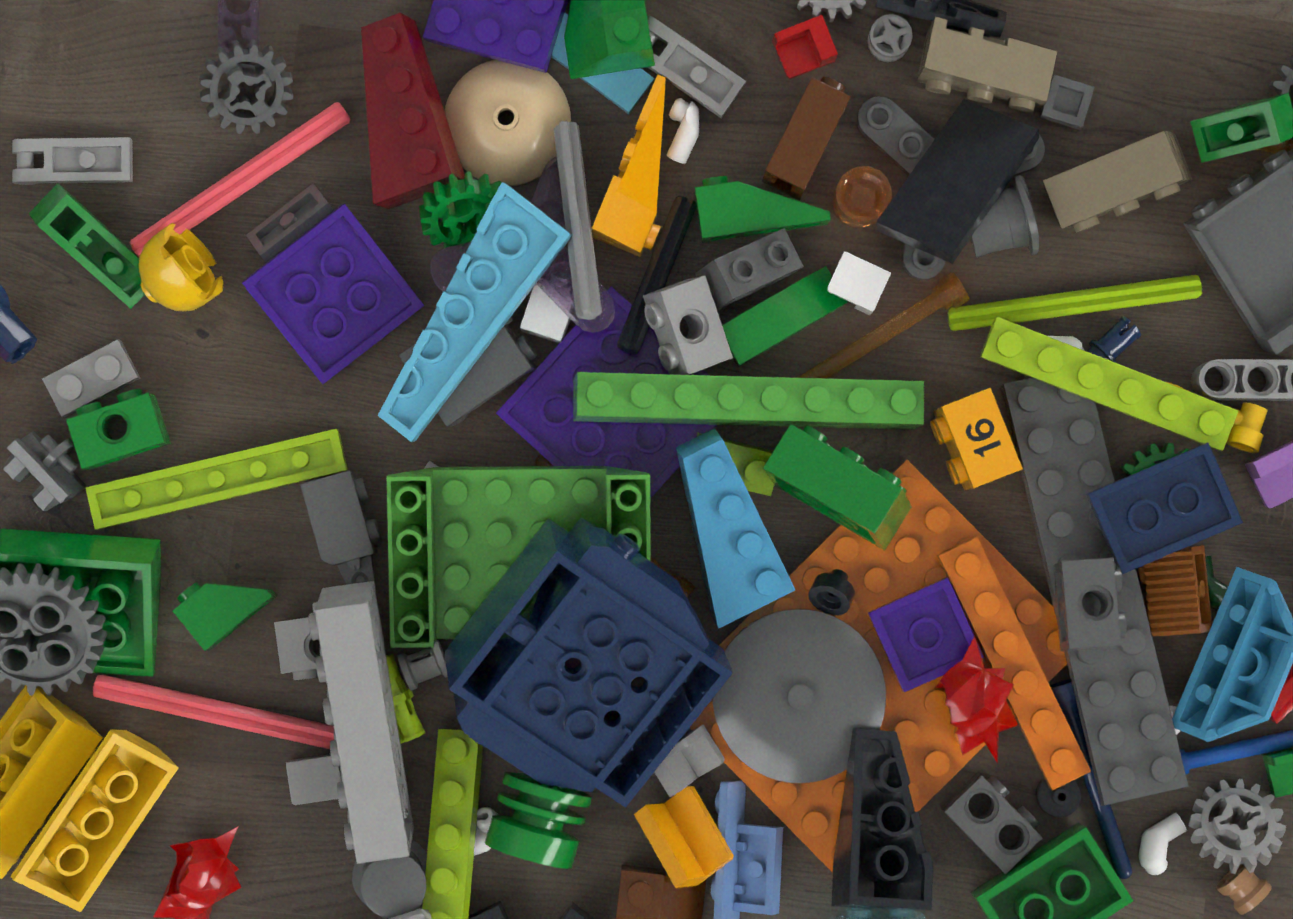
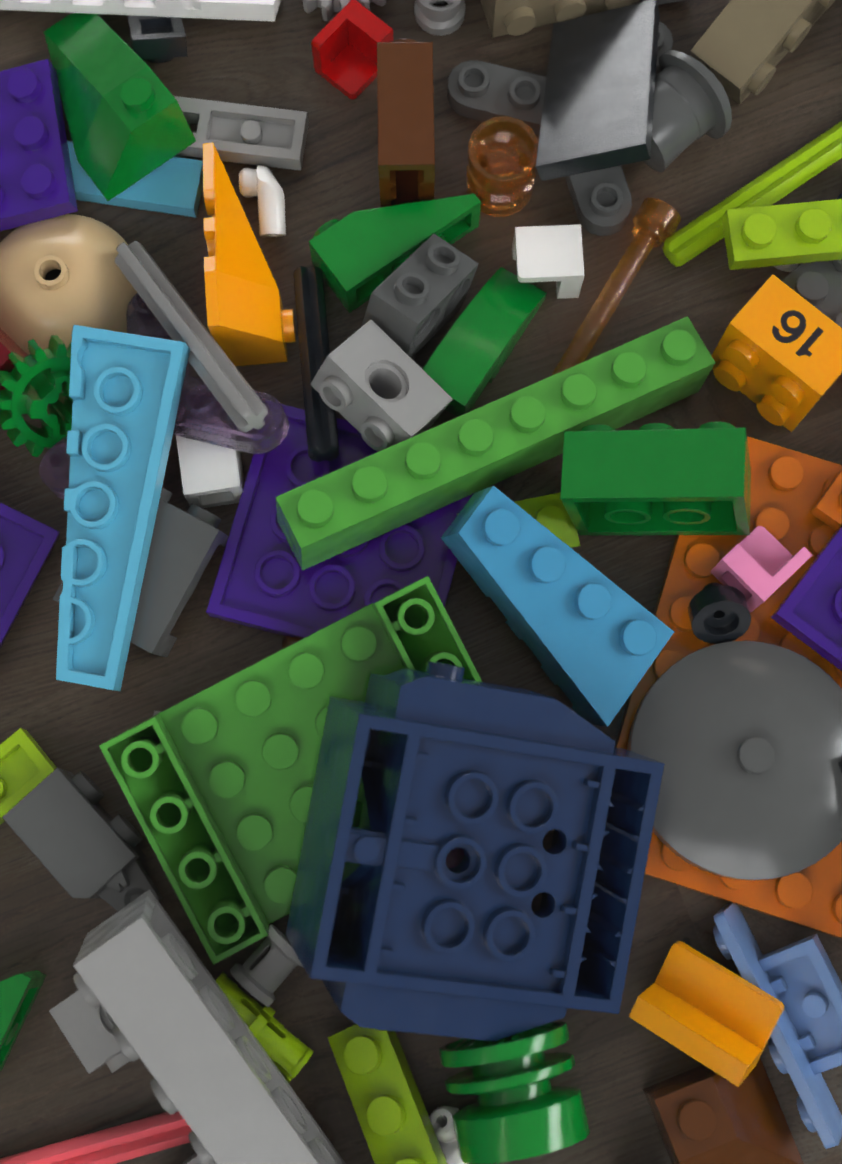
camera: 25 degrees left, 10 degrees down
(688, 760) = (661, 910): light grey panel -> none
(878, 574) = (758, 566): none -> bright pink panel

